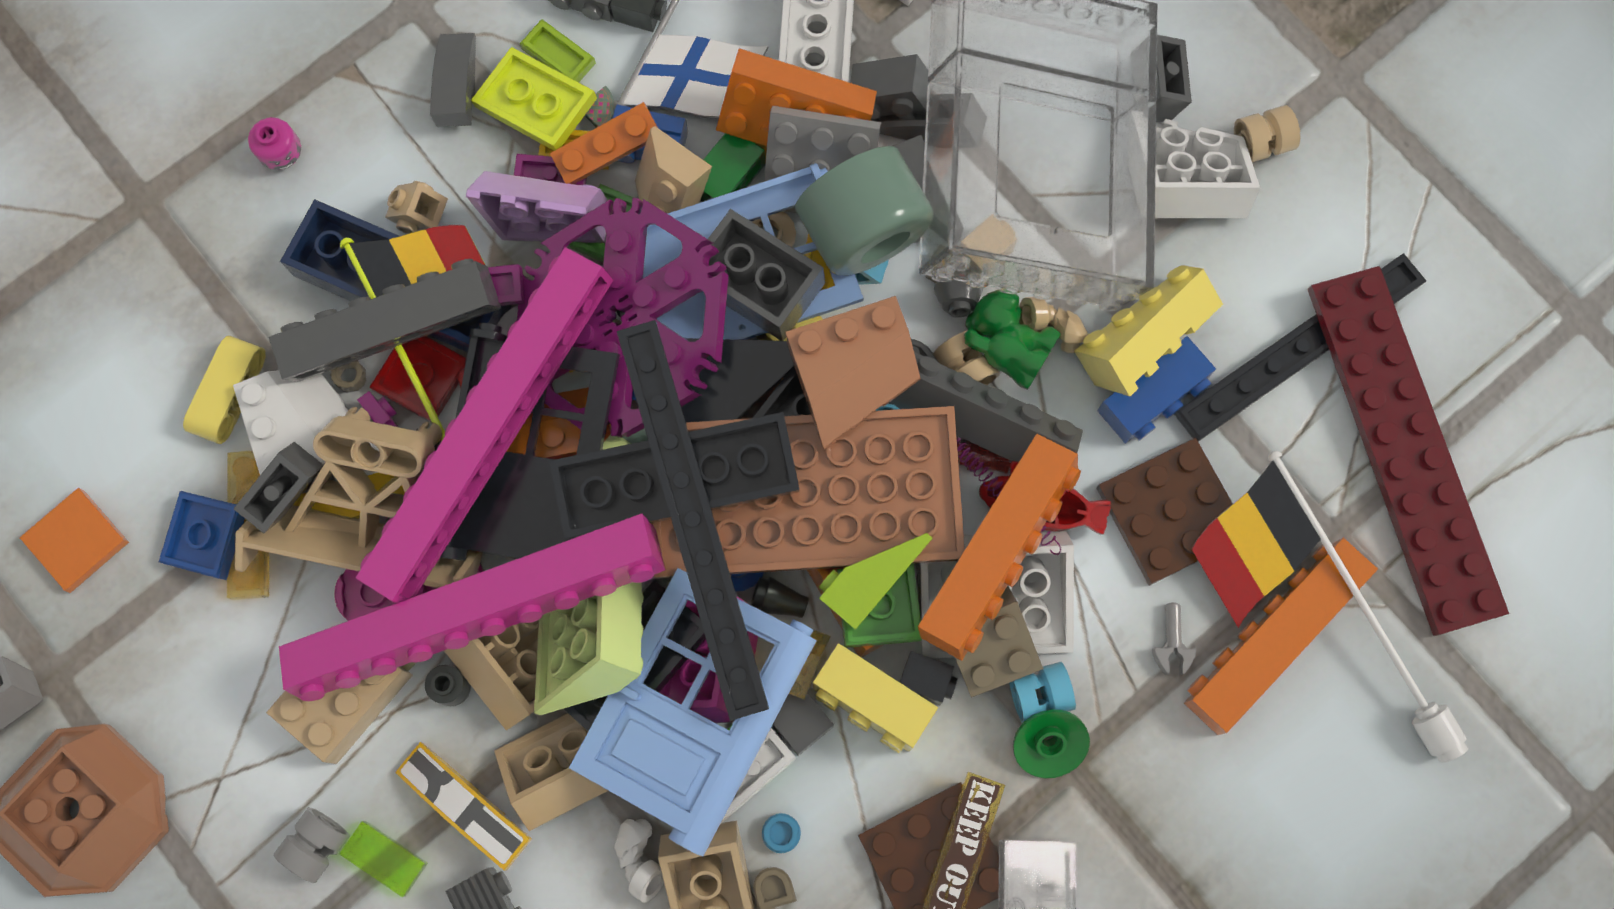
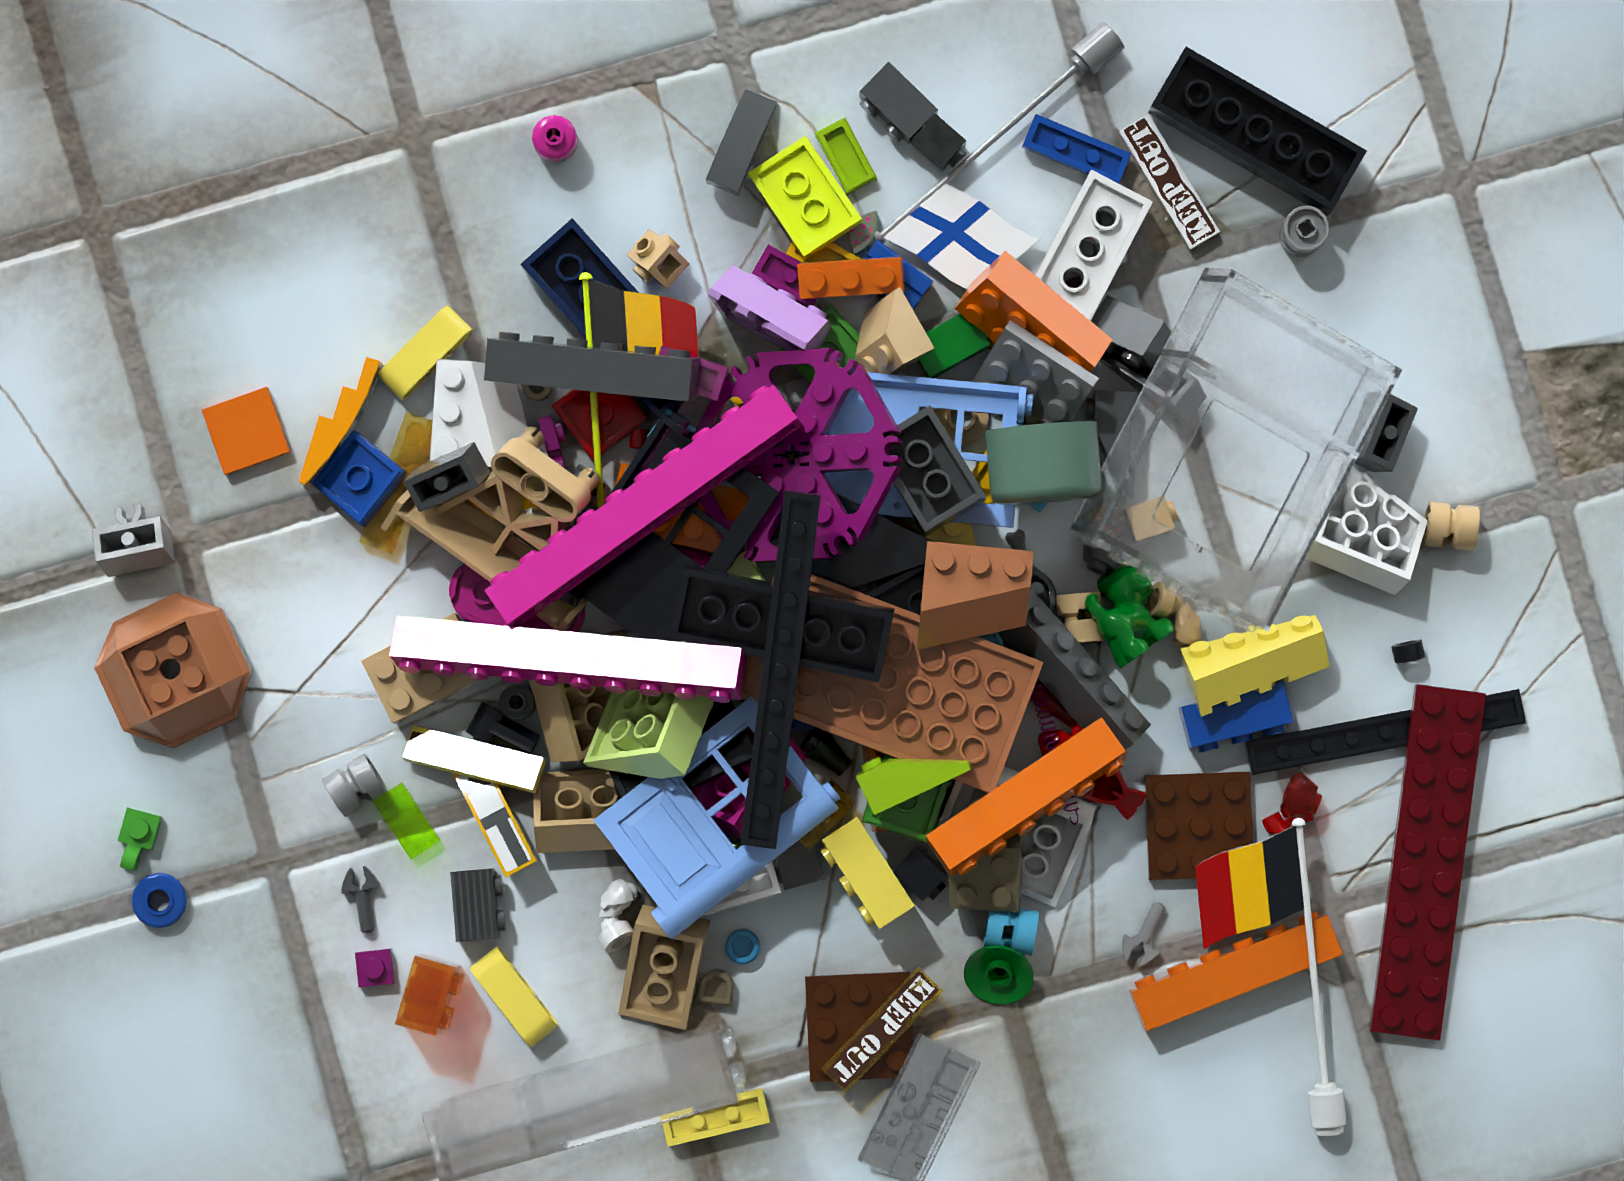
camera: 25 degrees right, 10 degrees up
(167, 478) = (332, 433): none -> light orange slope
(425, 762) = (474, 759): none -> tile
(435, 722) = (495, 728): none -> black piece
(1244, 476) = (1275, 823): none -> red hand
(1255, 439) = (1300, 797): none -> clear red cone
(1285, 263) = (1408, 651): none -> black axle

